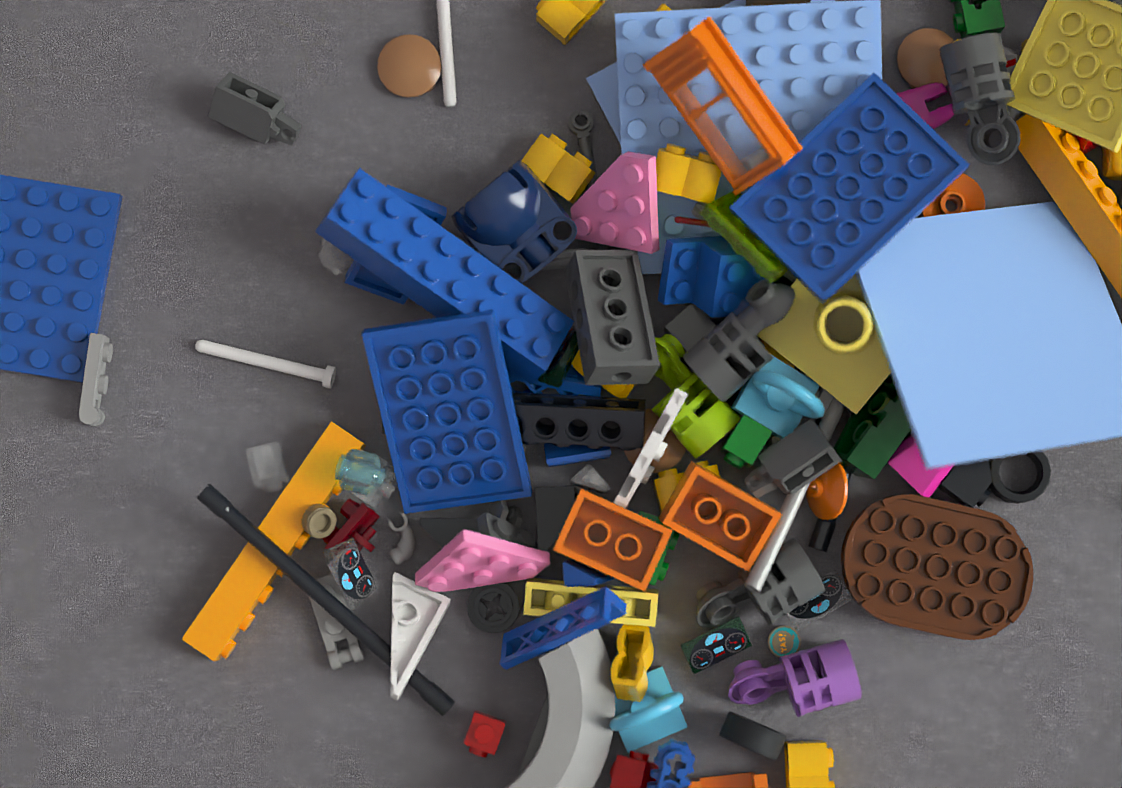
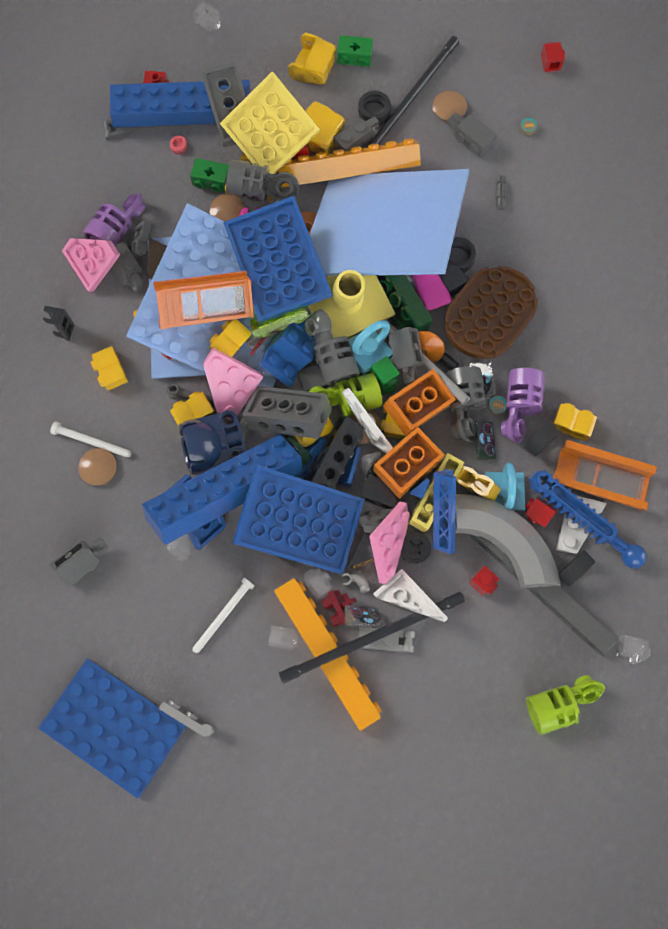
camera: 65 degrees left, 10 degrees down
(319, 521) = (327, 621): dark tan tile -> none
(359, 472) = (310, 584): clear light blue head -> none

